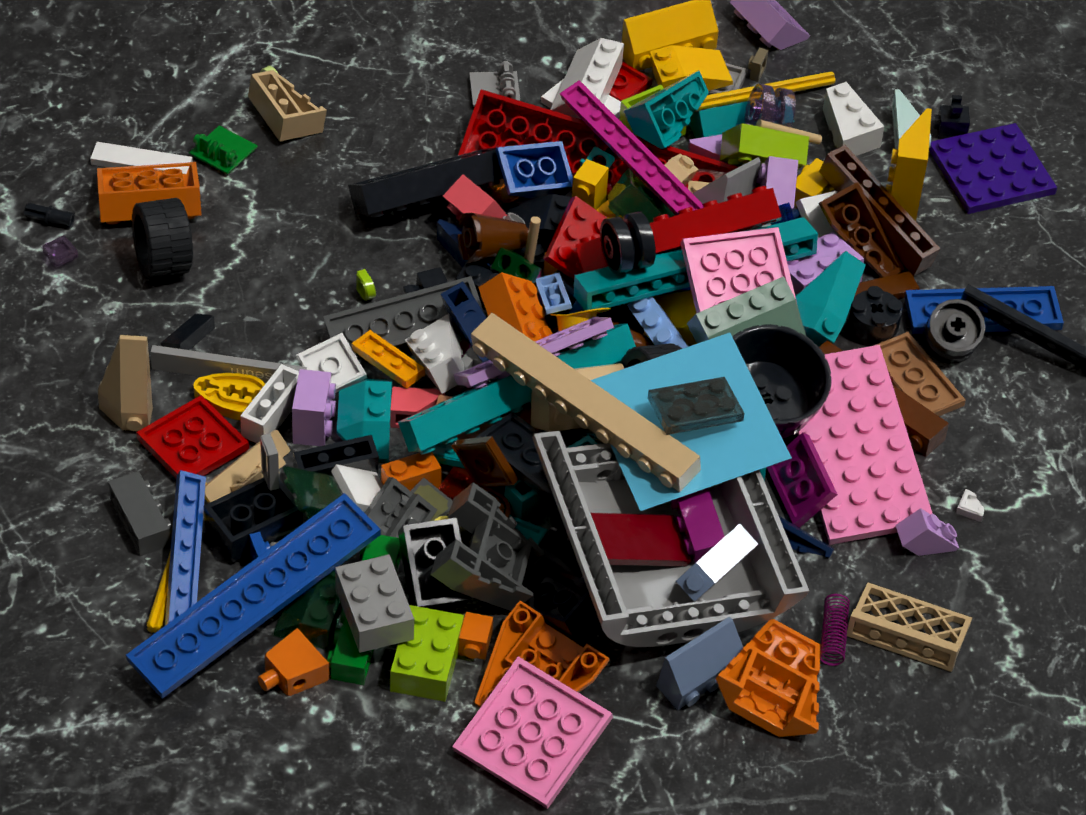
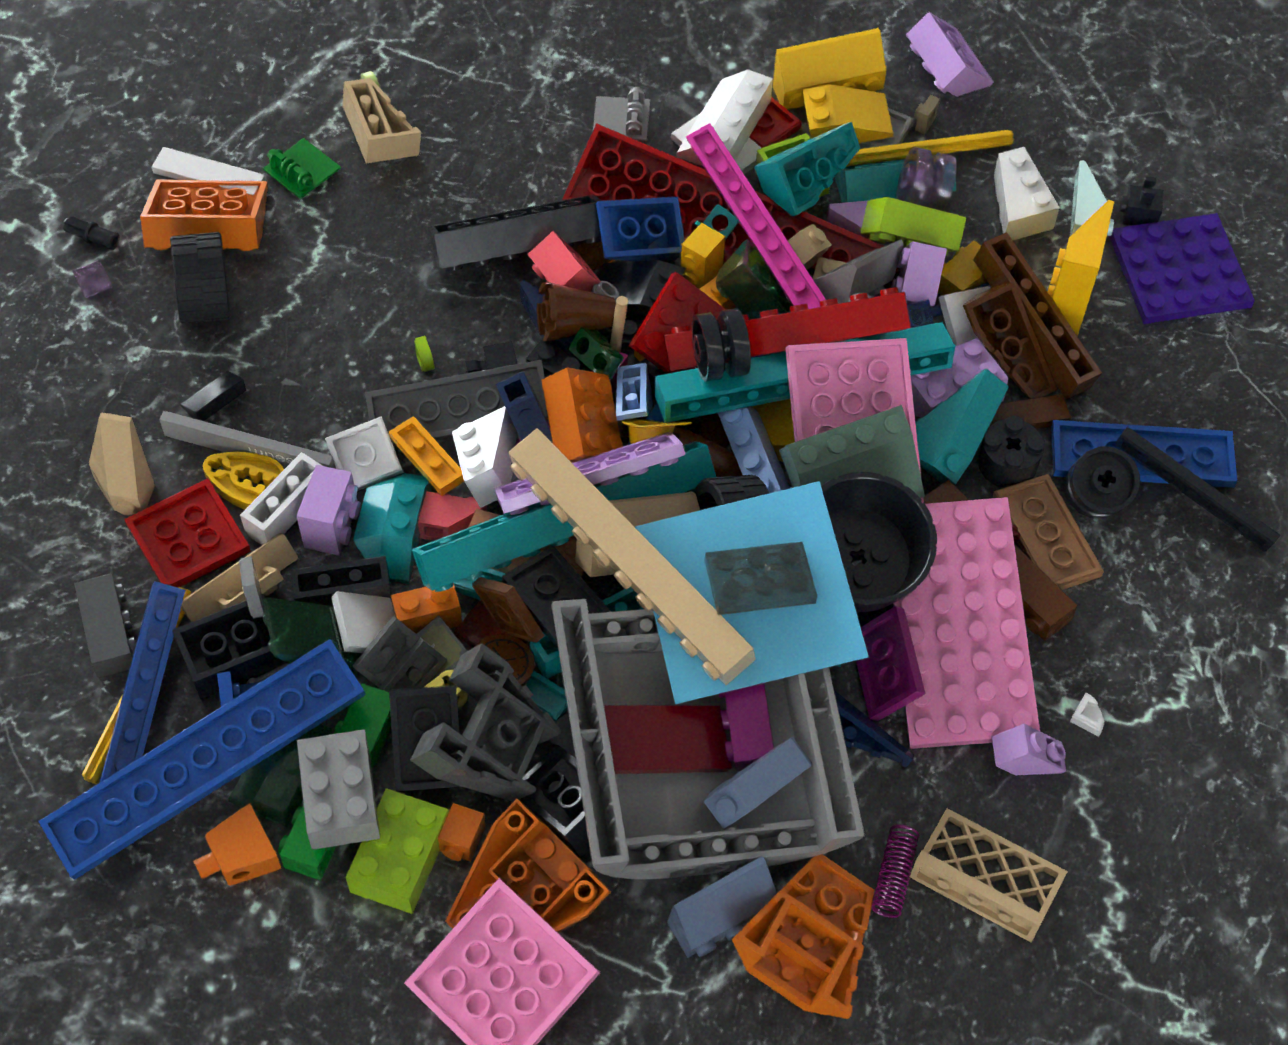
camera: 10 degrees right, 10 degrees up
(813, 138) = (971, 216): tan bar -> none

